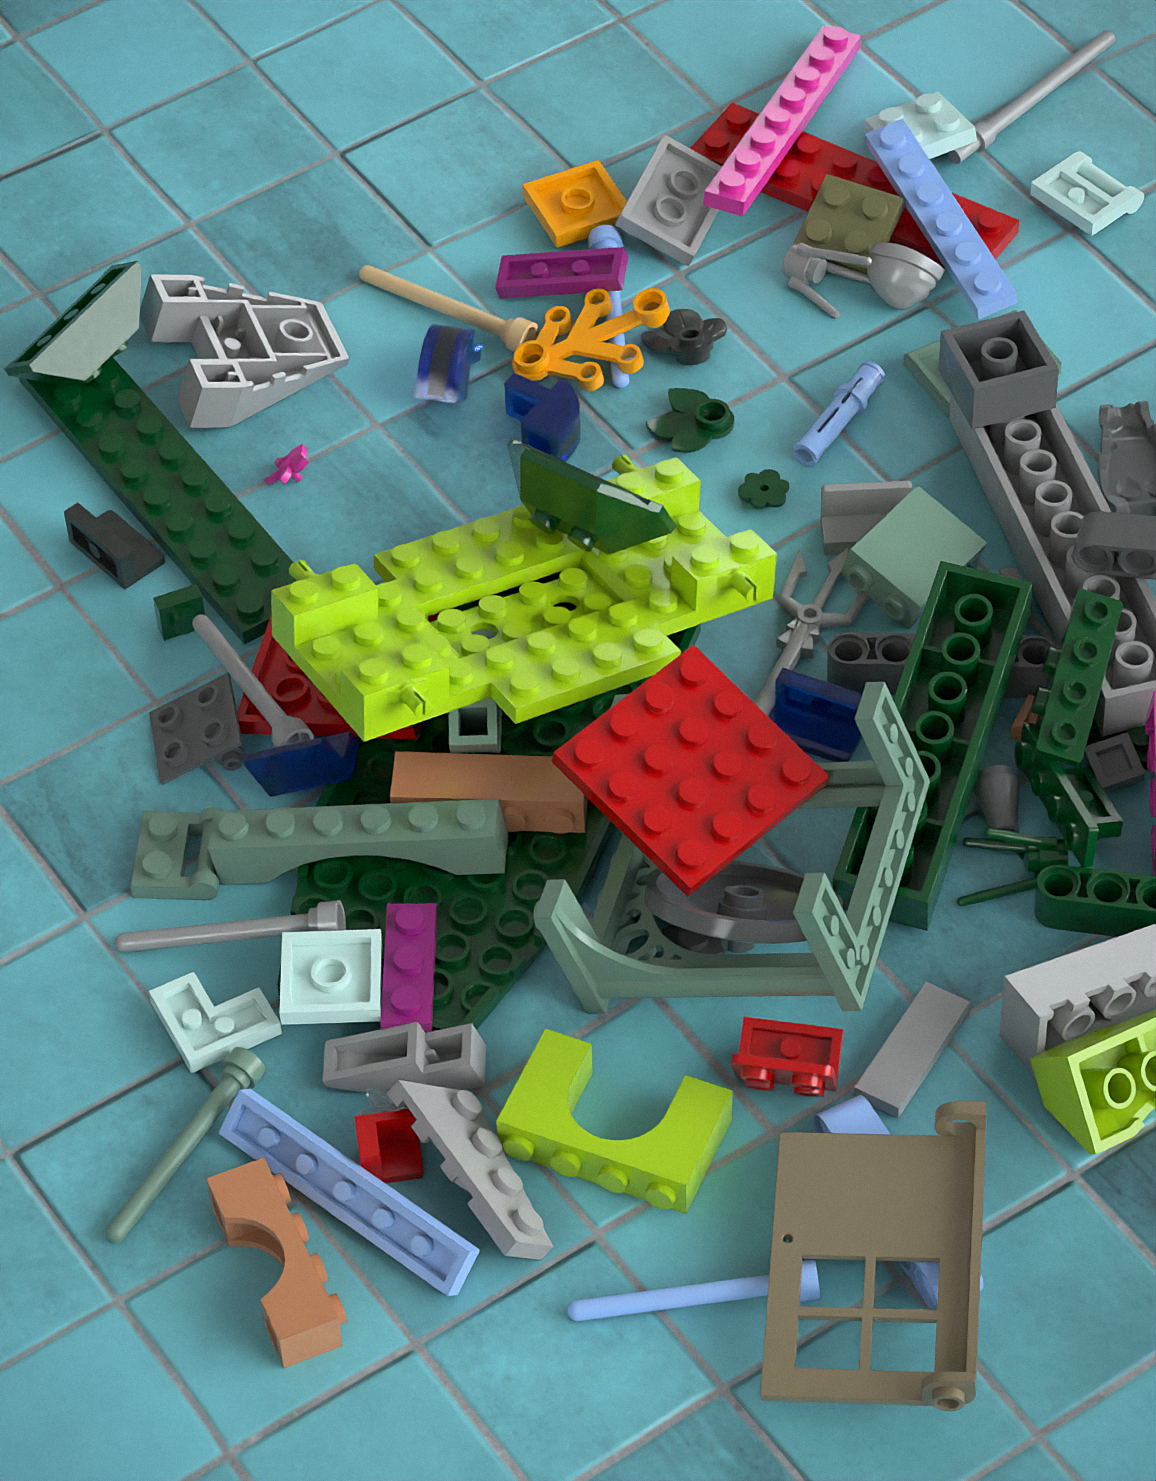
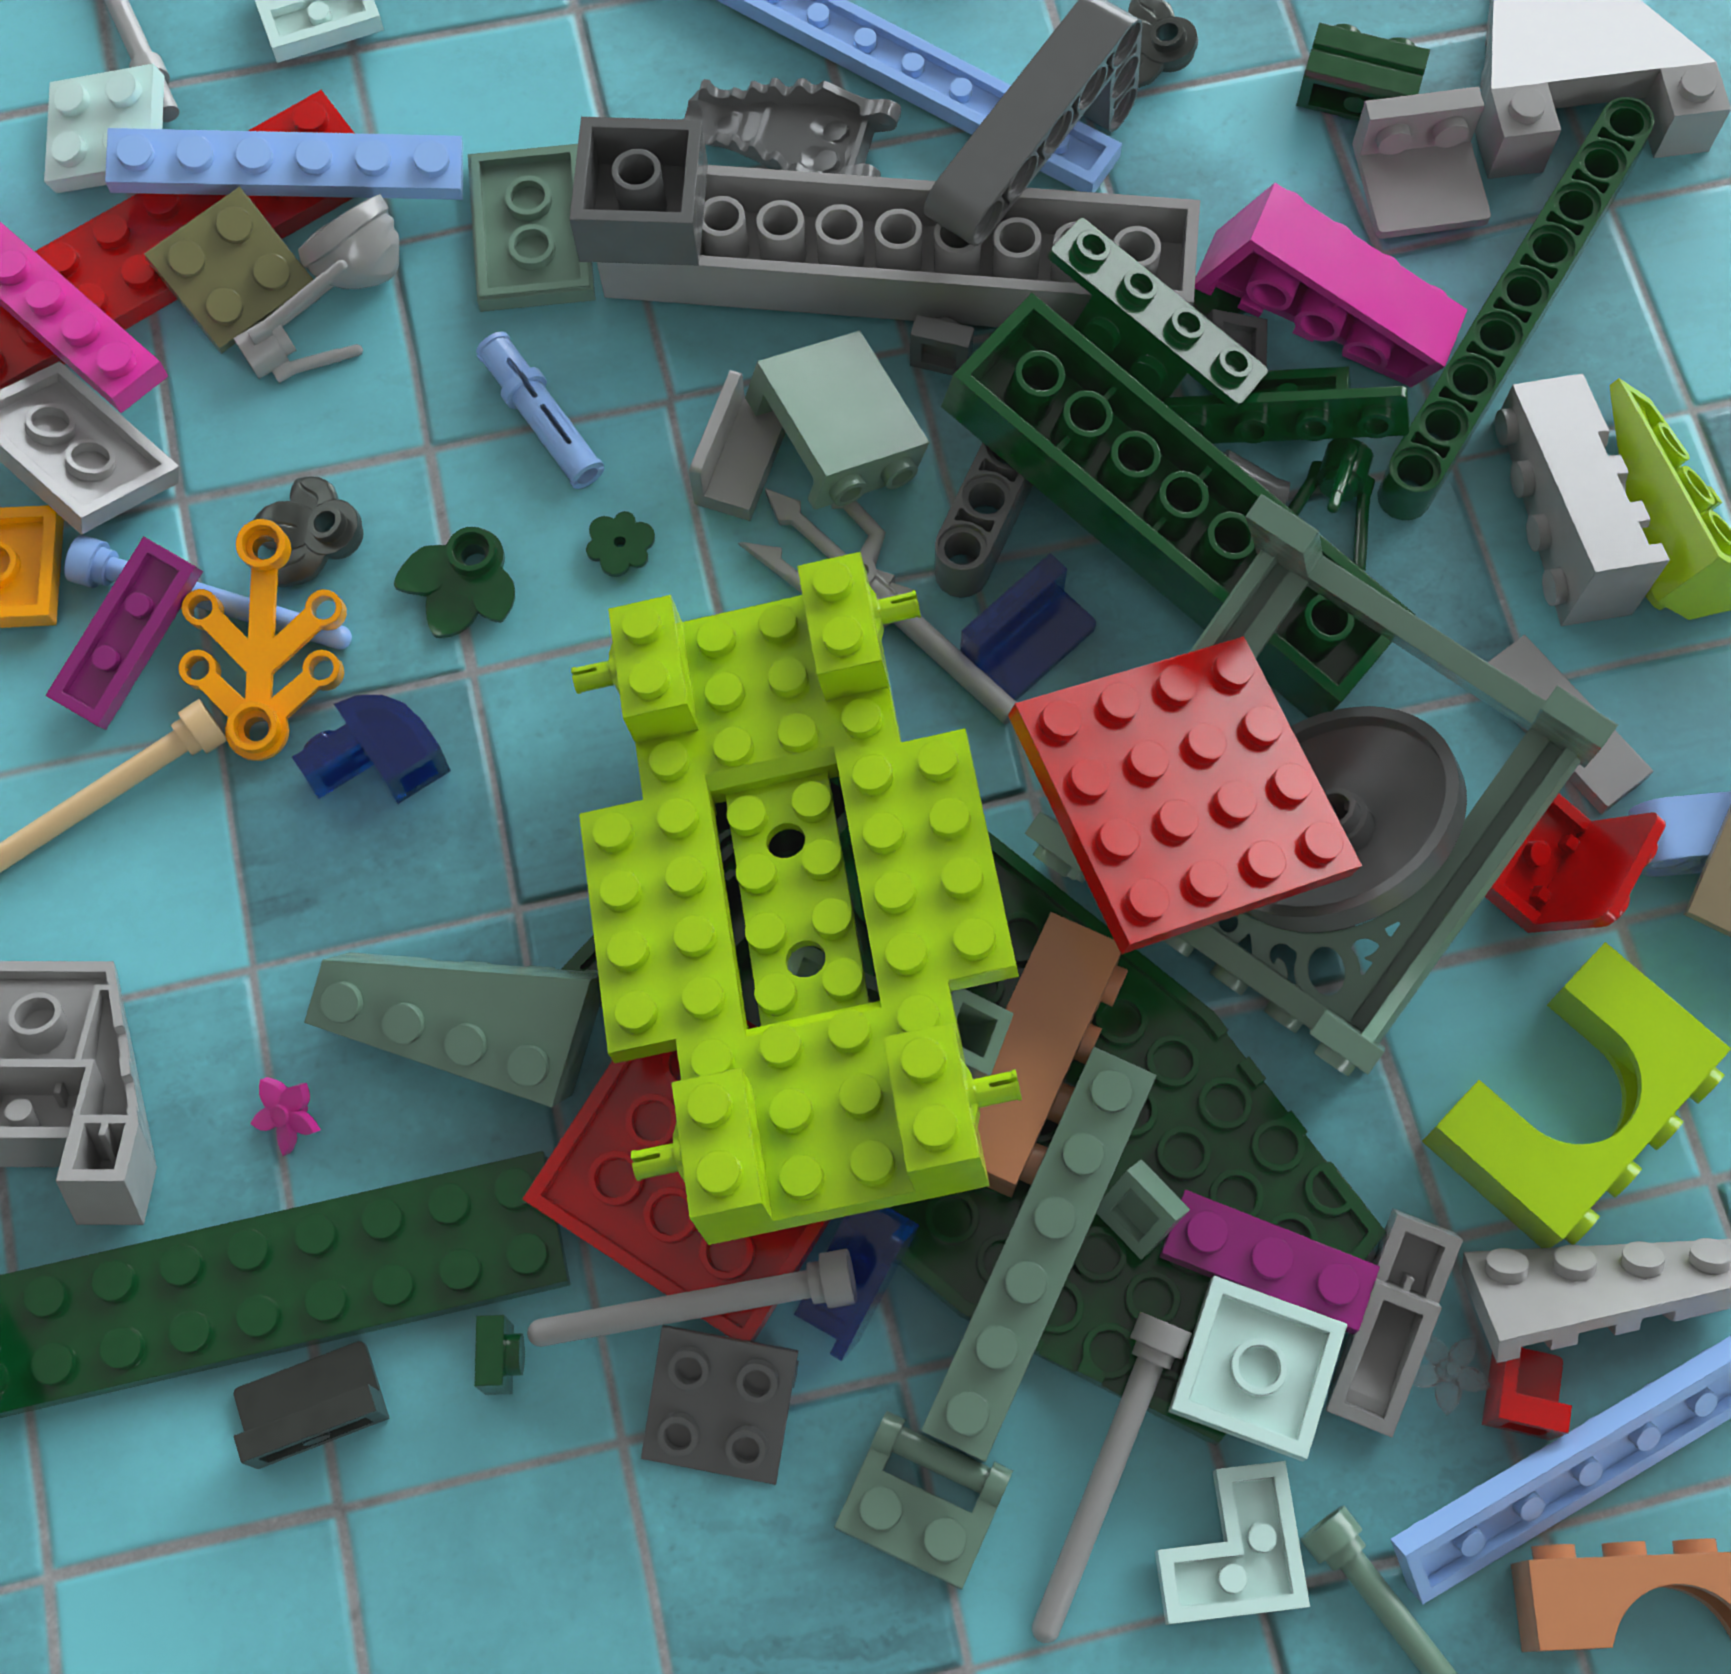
camera: 70 degrees left, 20 degrees up
(377, 500) = (470, 1018): none -> sand green wedge
(411, 880) = (1141, 1209): none -> sand green plate
(446, 363) = (219, 837): clear blue brick -> none
(582, 504) = (669, 752): dark green wedge -> none

